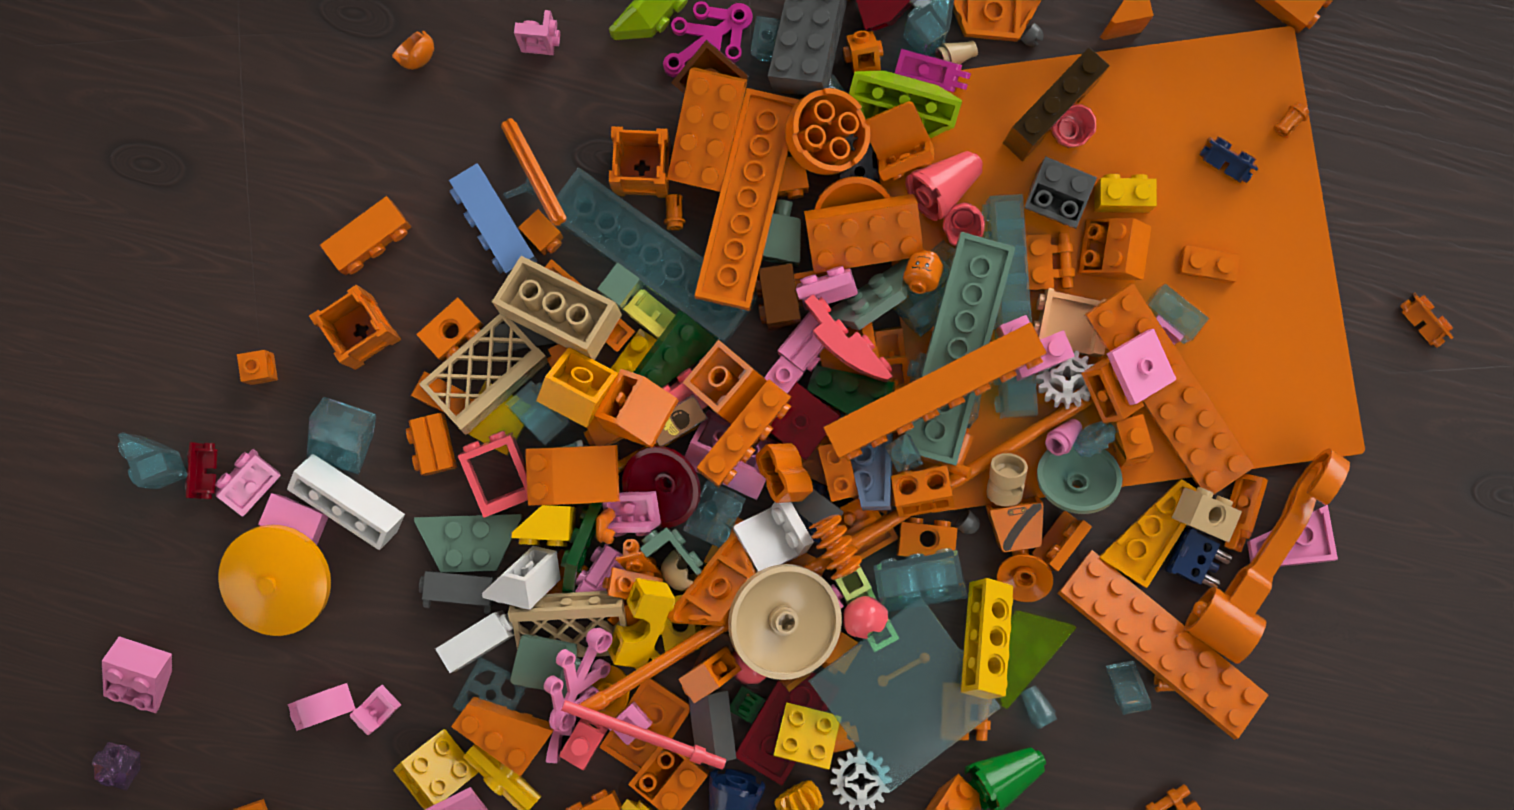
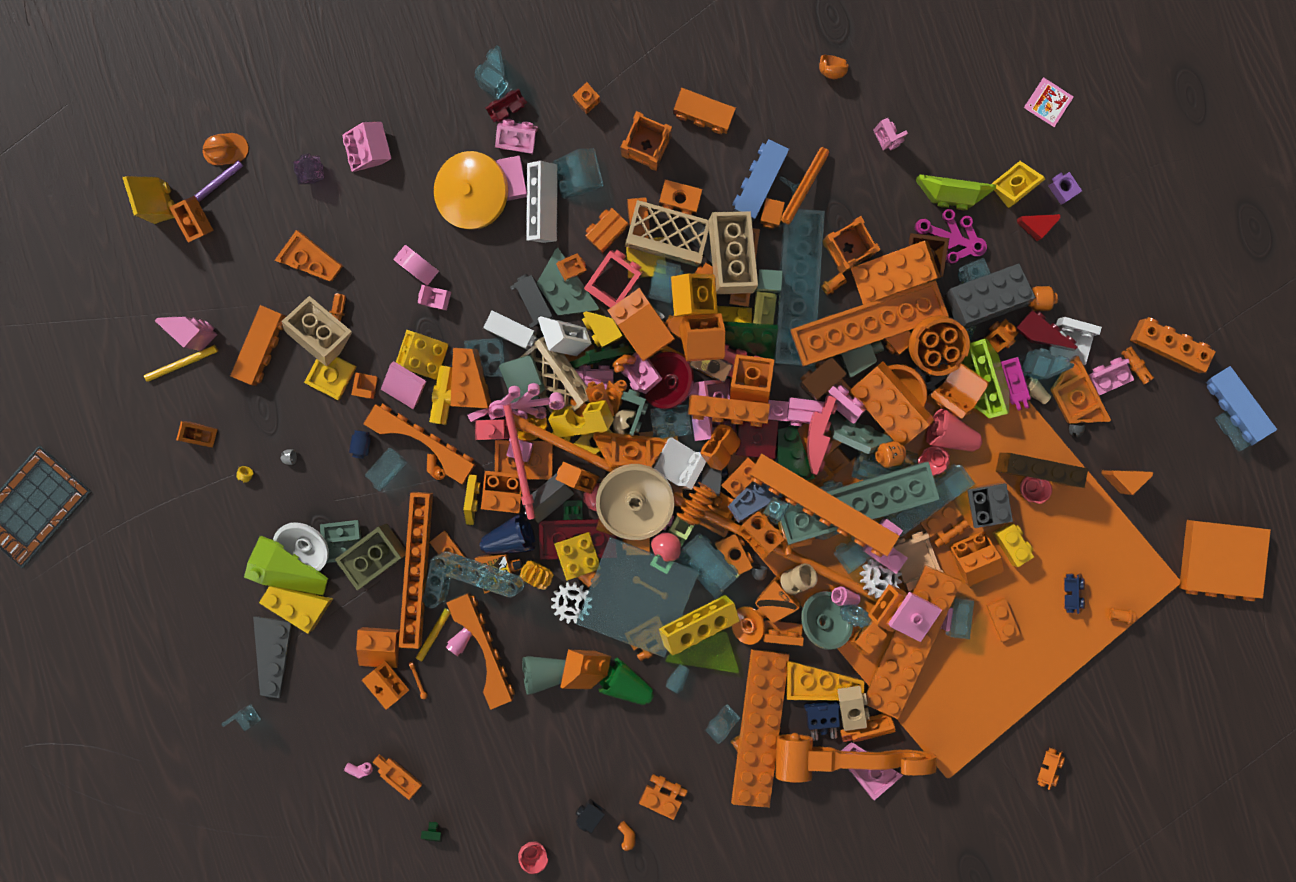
camera: 60 degrees right, 5 degrees up
(447, 515) = (571, 266): none -> orange bracket

